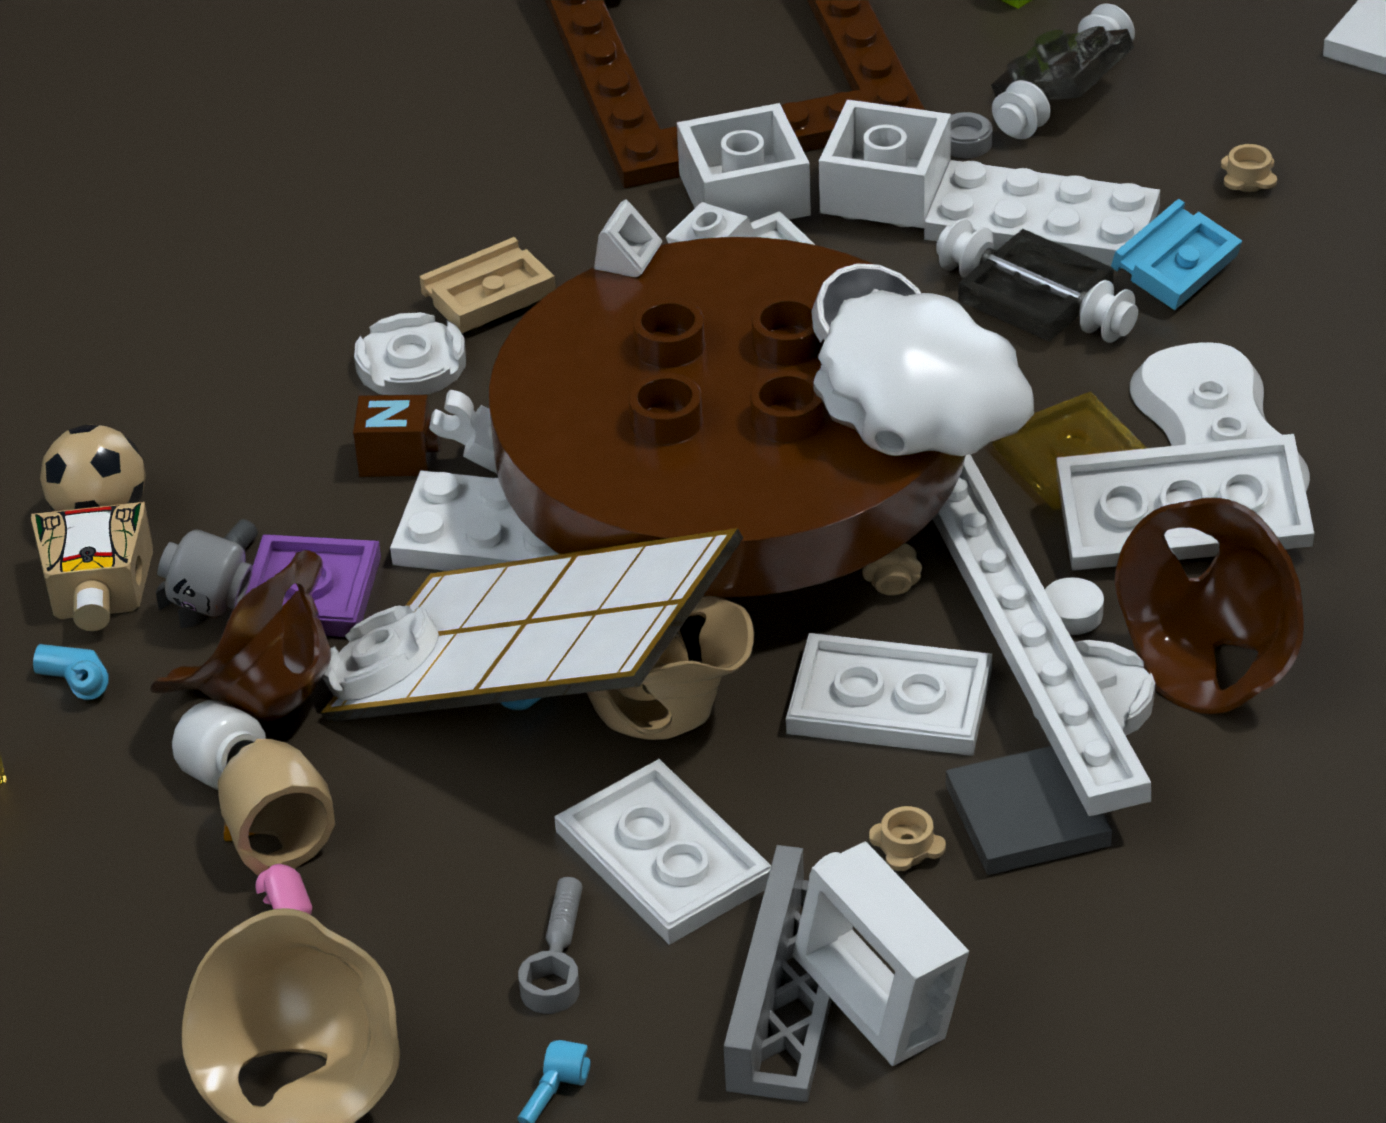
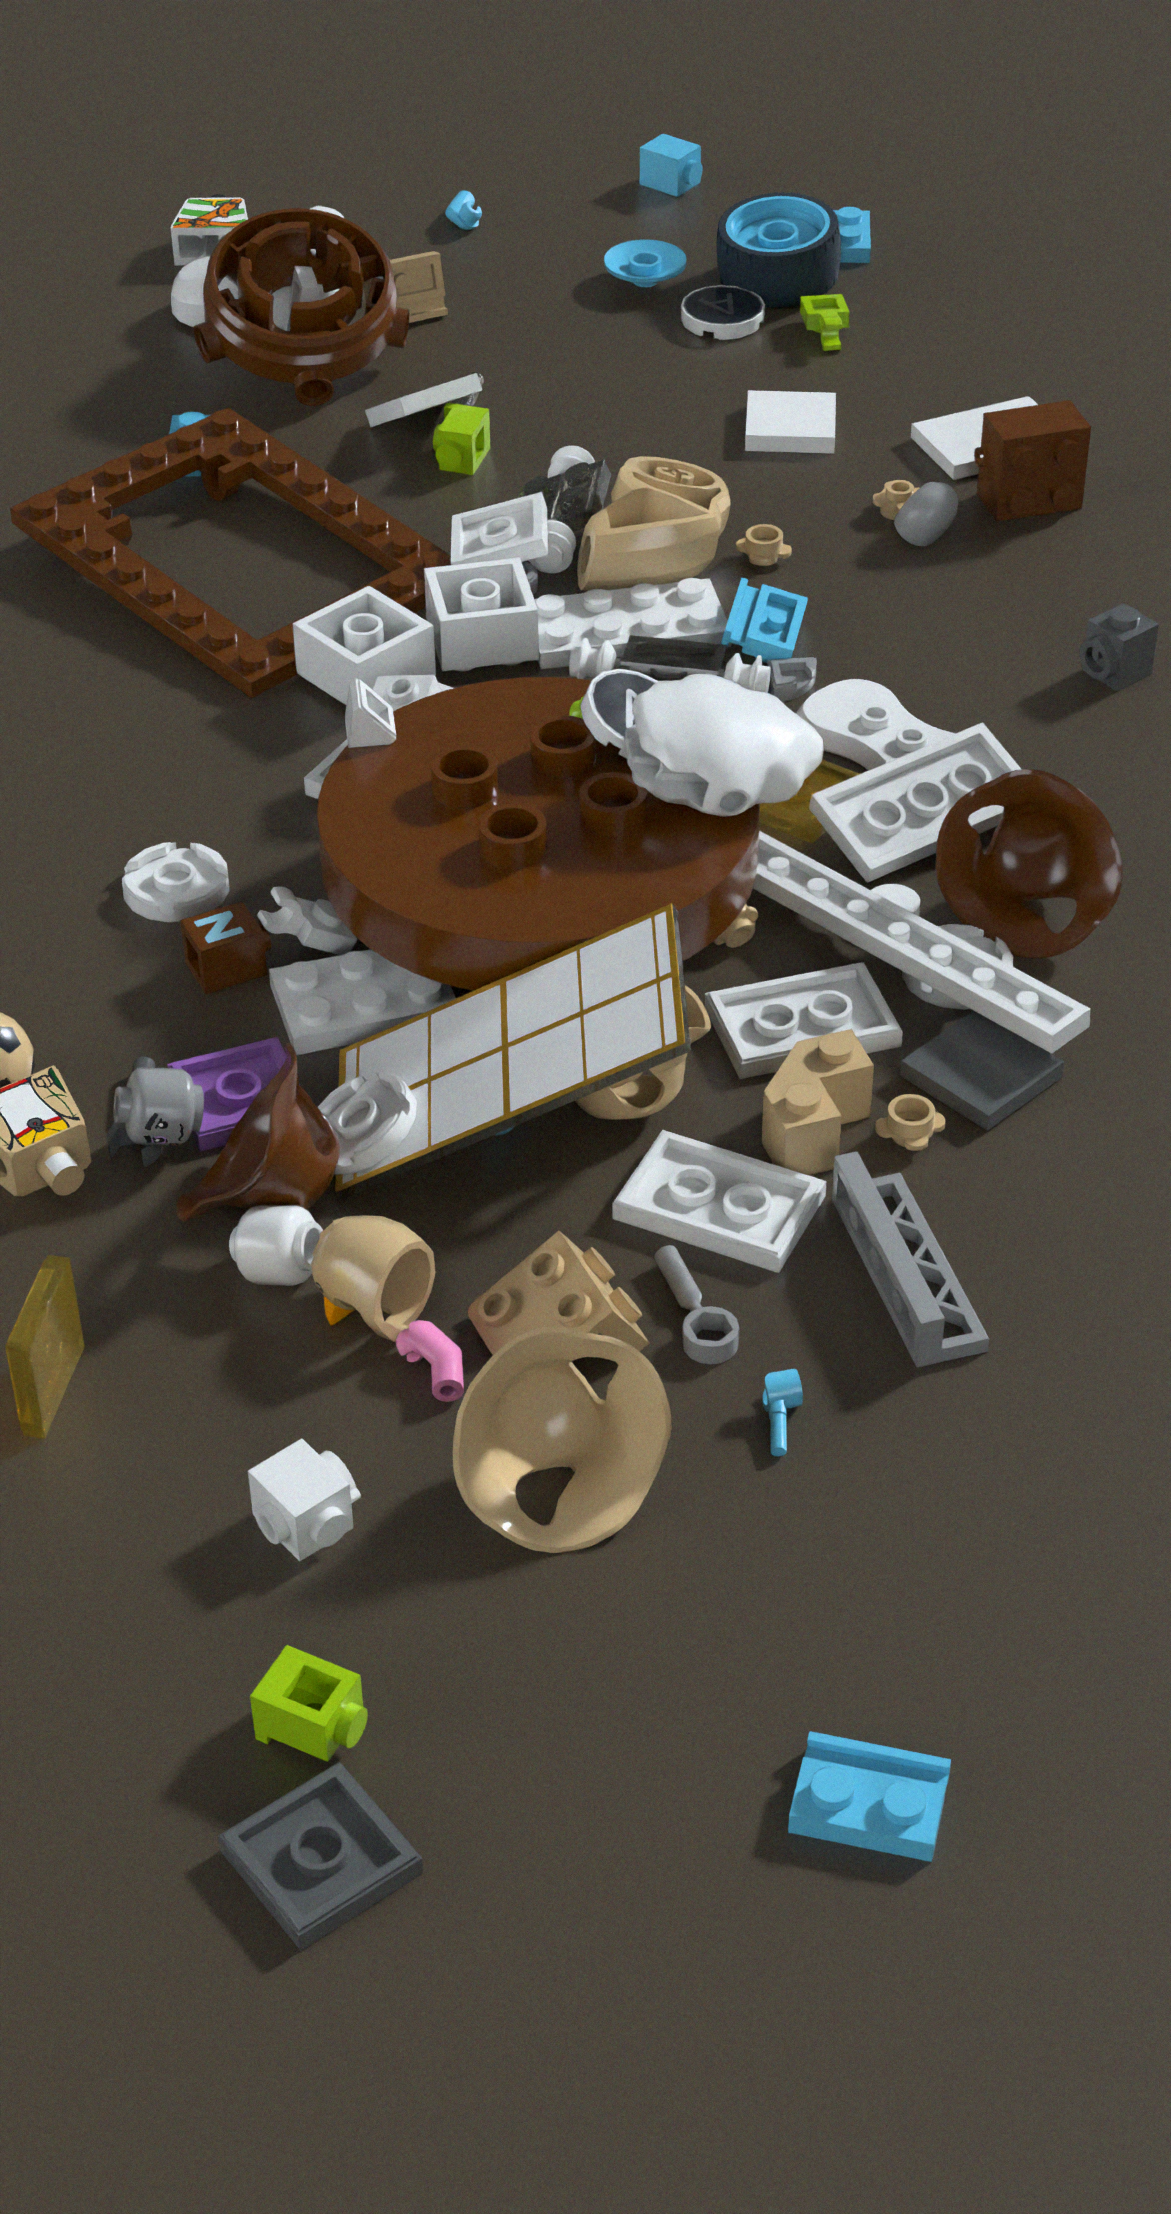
camera: 30 degrees left, 0 degrees up
(60, 995) = (303, 1498): none -> white brick
(78, 666) = (84, 1227): medium azure arm -> none
(424, 890) = (557, 1289): none -> tan bracket
(487, 285) = (205, 804): tan plate -> none
(821, 768) = (809, 1098): none -> tan brick
(893, 1011) = (1004, 1169): white window -> none
(967, 81) = (501, 531): none -> white tile
(1139, 116) = (656, 528): none -> tan piece
(1167, 323) = (791, 677): none -> light grey tile

